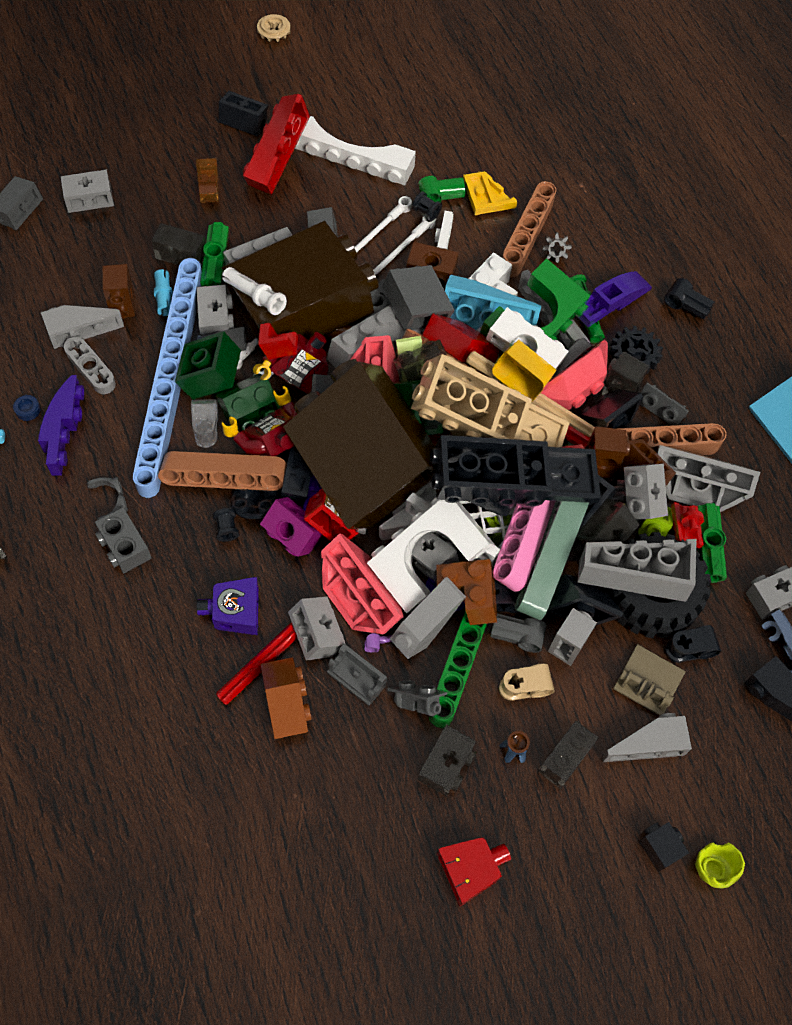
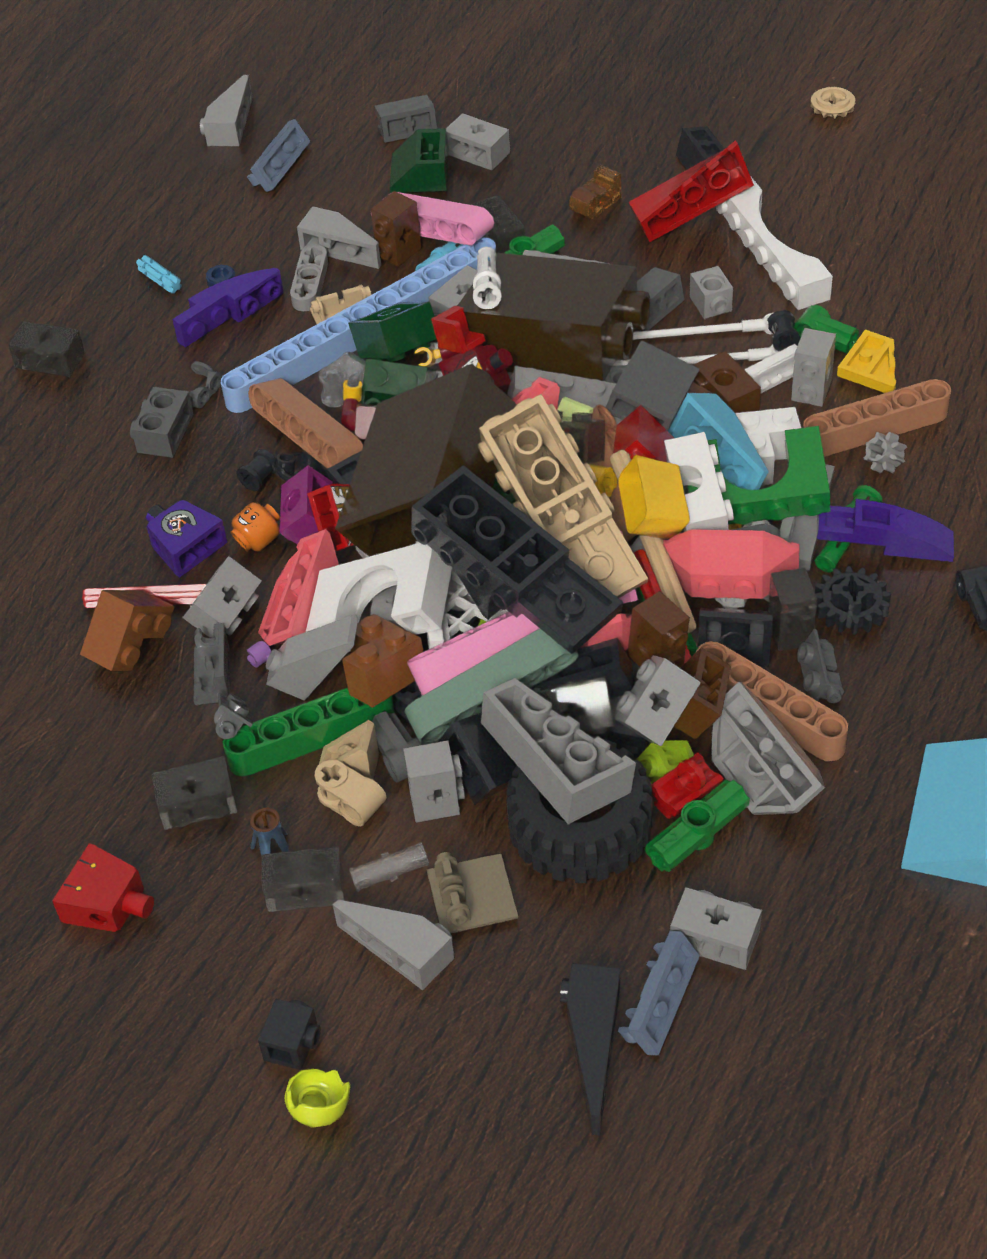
camera: 55 degrees right, 15 degrees down
(70, 231) = (421, 163): none -> dark green slope
(140, 372) = (330, 304): none -> tan hinge
(143, 265) = (451, 220): none -> bright pink beam
(274, 563) = (255, 526): none -> orange head
(354, 206) = (711, 292): none -> light grey brick
(471, 219) = (813, 367): none -> light grey brick
(503, 657) = (355, 749): none -> tan slope
(596, 703) = (389, 866): none -> clear pin
(693, 644) = (557, 898): black piece -> none

